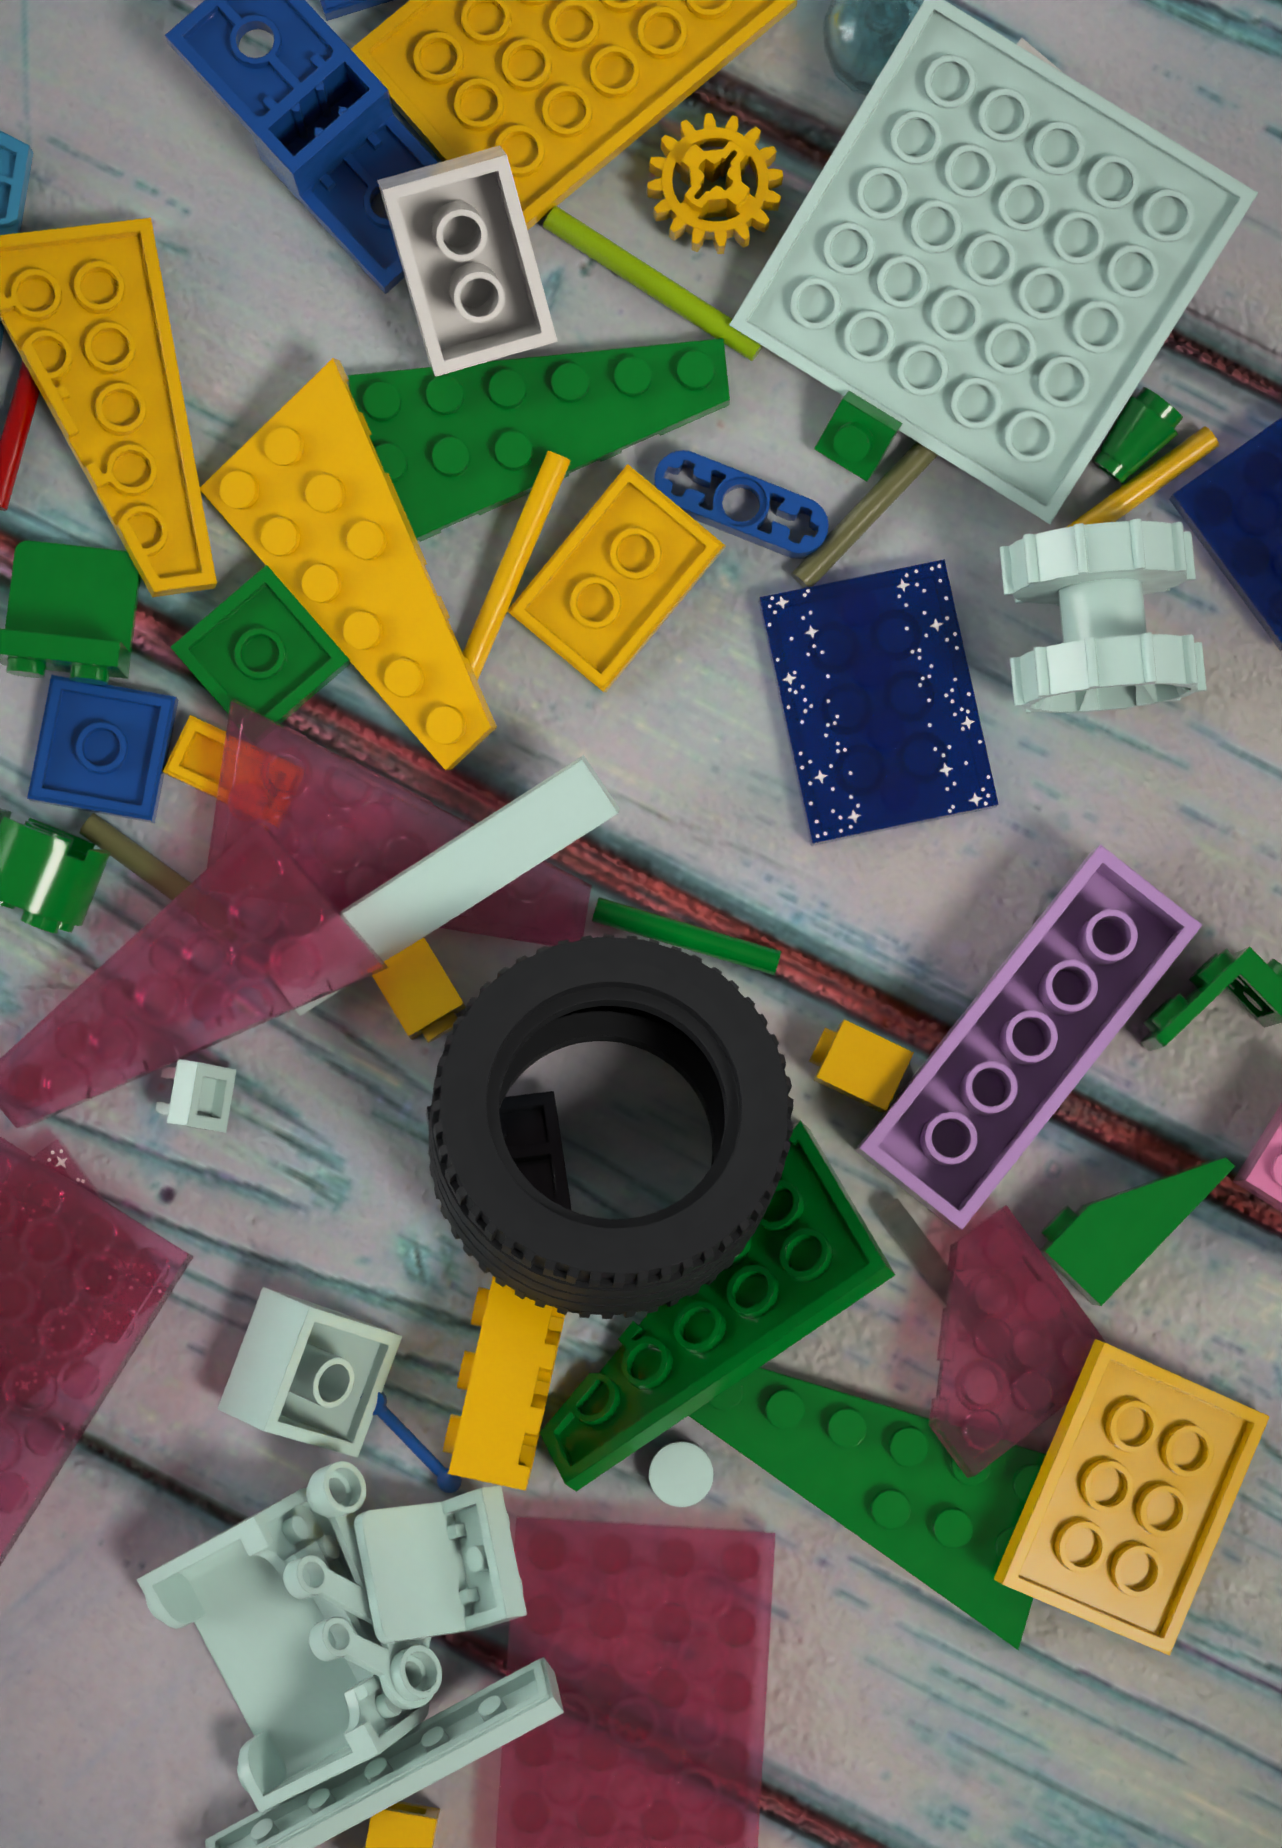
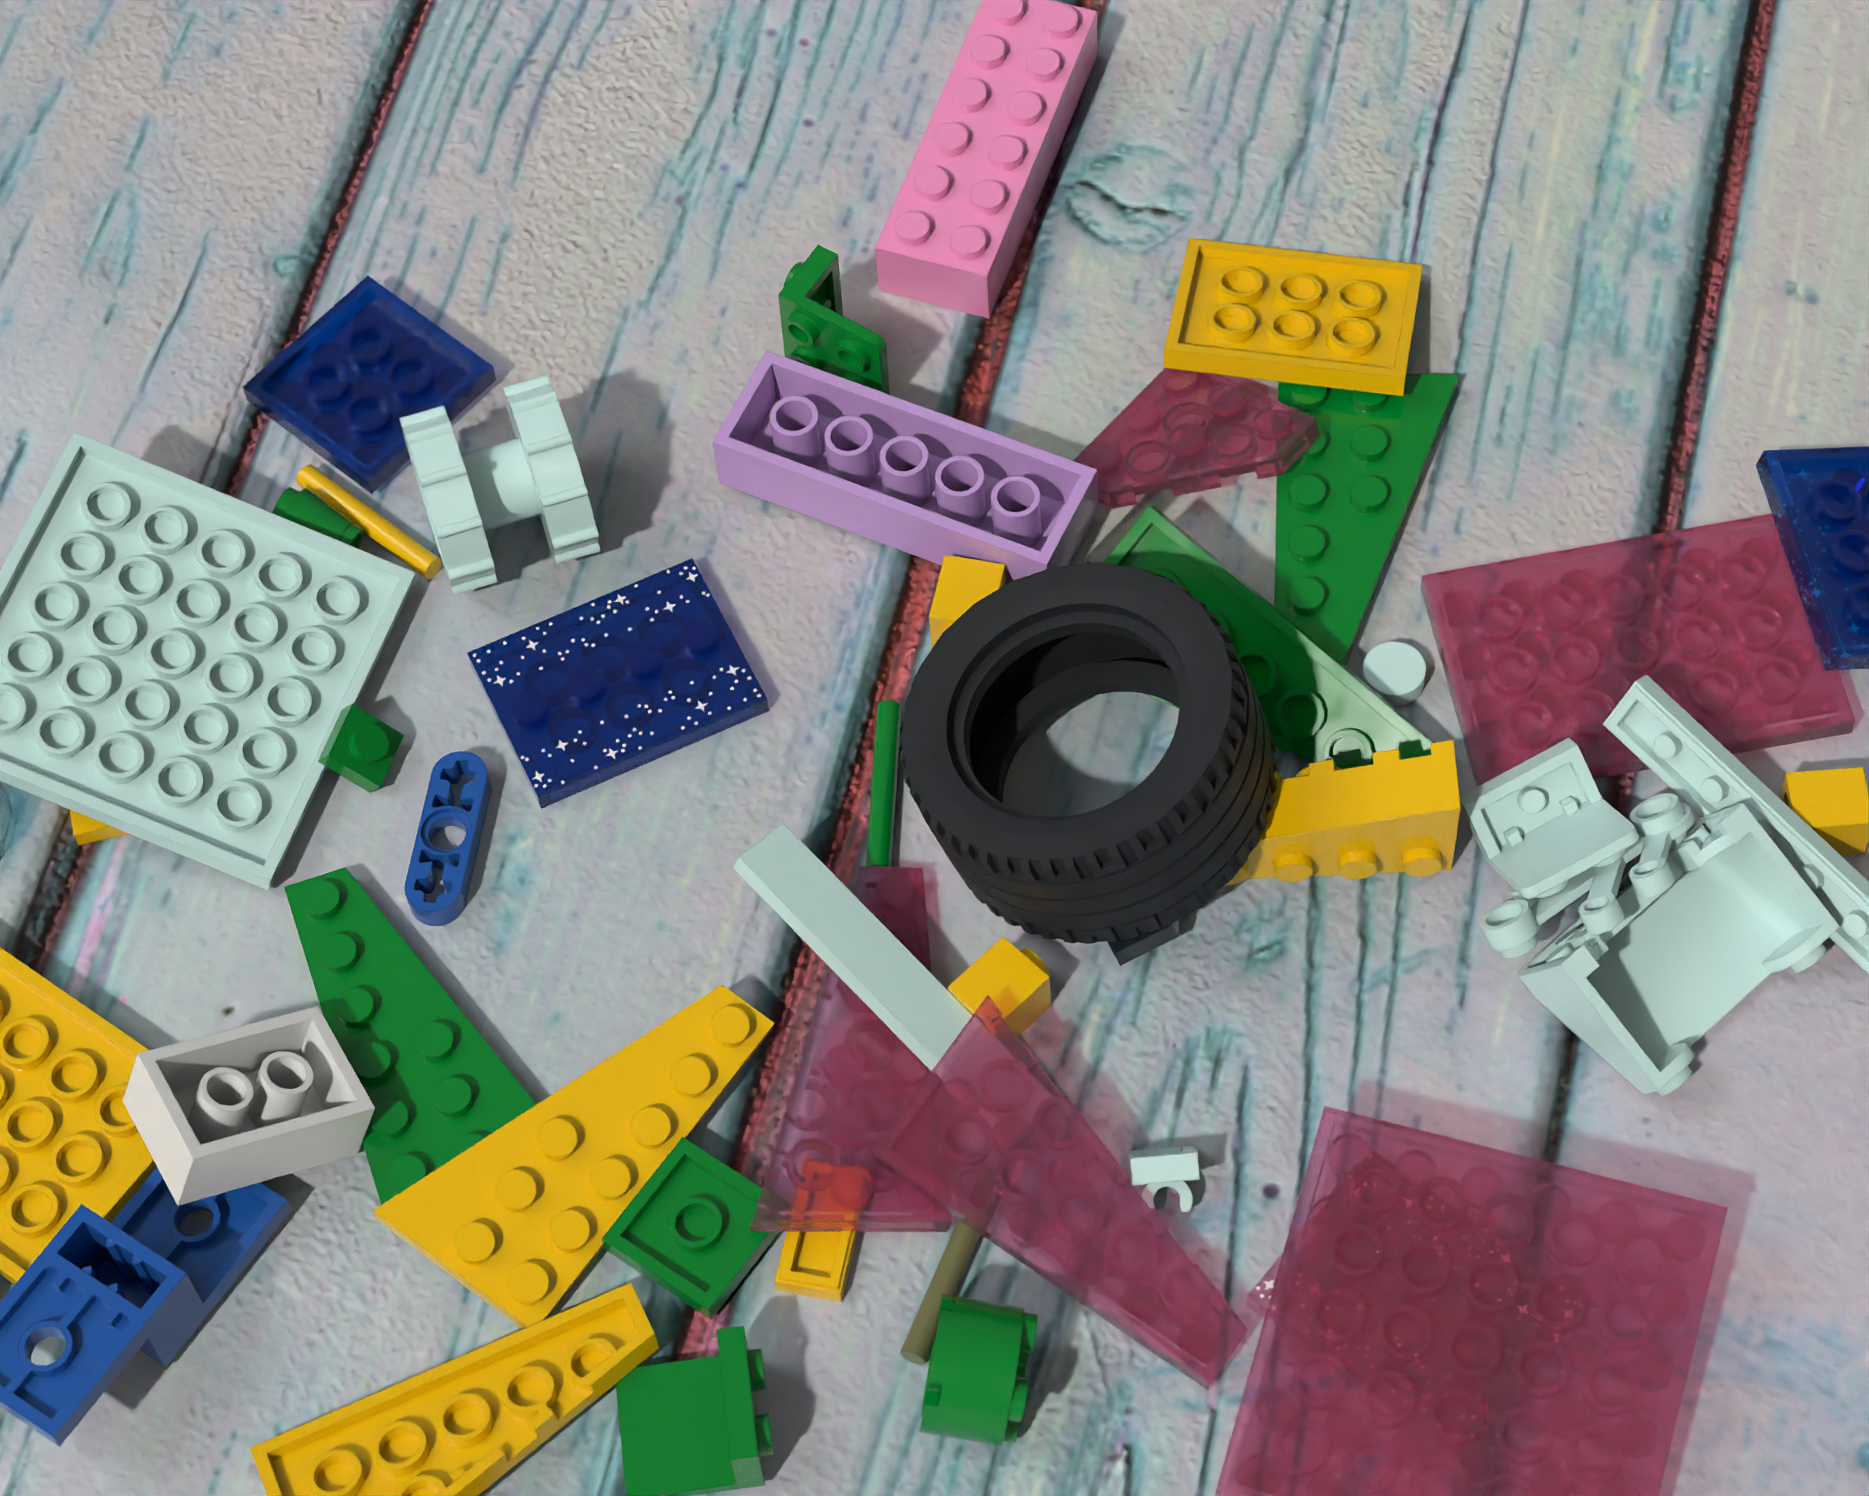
camera: 95 degrees left, 25 degrees down
(103, 749) = (831, 1362): blue tile -> none
(306, 1373) = (1405, 1005): light aqua slope -> none
(446, 1482) = (1416, 949): blue hinge -> none
(515, 560) = (538, 1014): yellow bar -> none
(616, 578) = (545, 922): yellow tile -> none
(649, 281) = (246, 949): lime bar -> none
(695, 165) = (127, 927): yellow gear -> none
(863, 515) = (436, 733): olive bar -> none
(1116, 1234) = (1061, 377): green slope -> none

